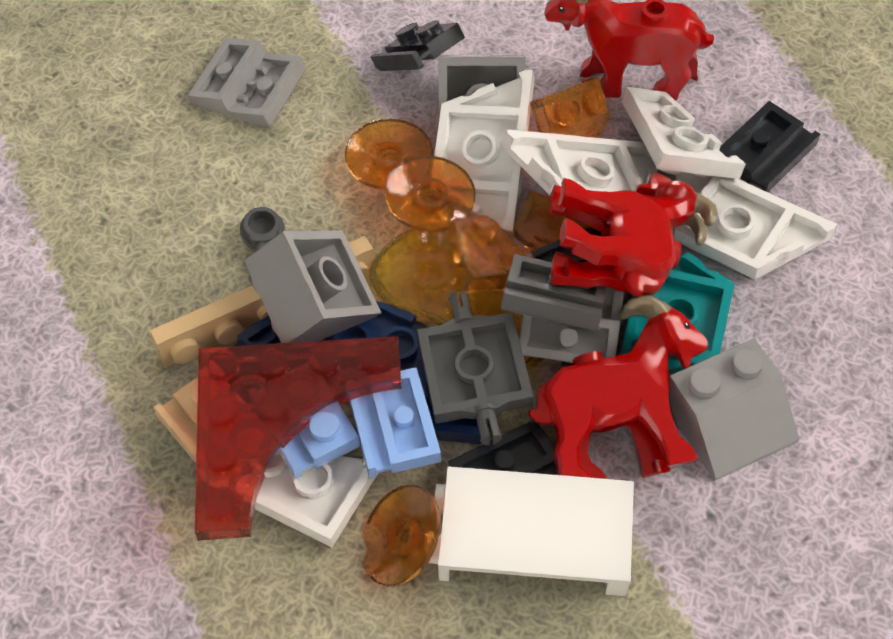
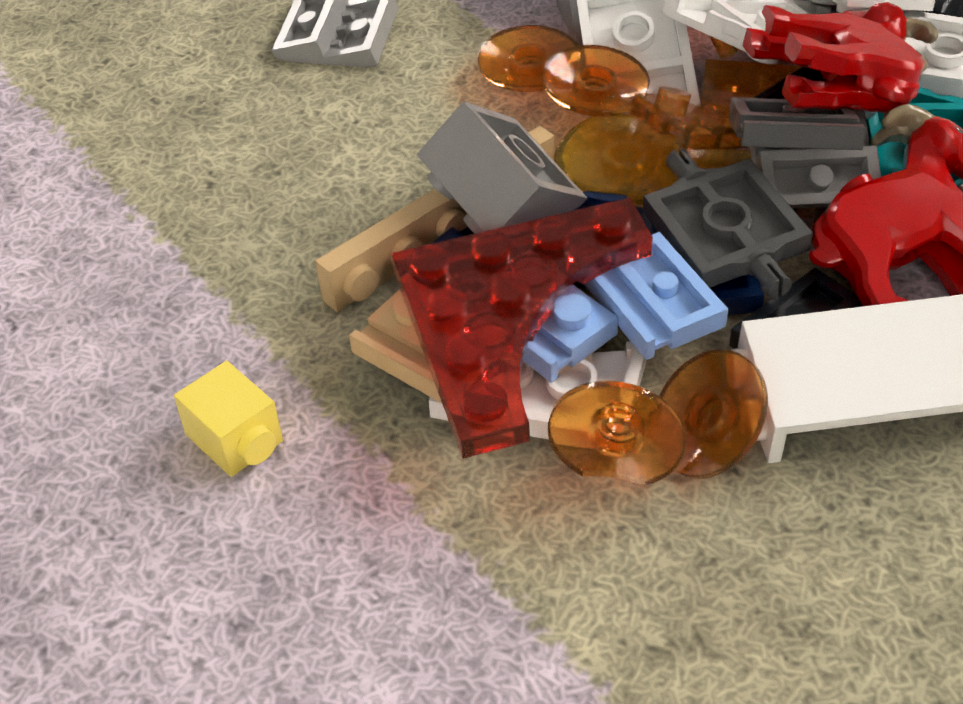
camera: 10 degrees left, 10 degrees down
(51, 455) = (229, 418): none -> light yellow brick
(260, 227) = (400, 157): dark grey plate -> none
(320, 540) = (616, 432): none -> clear orange dish

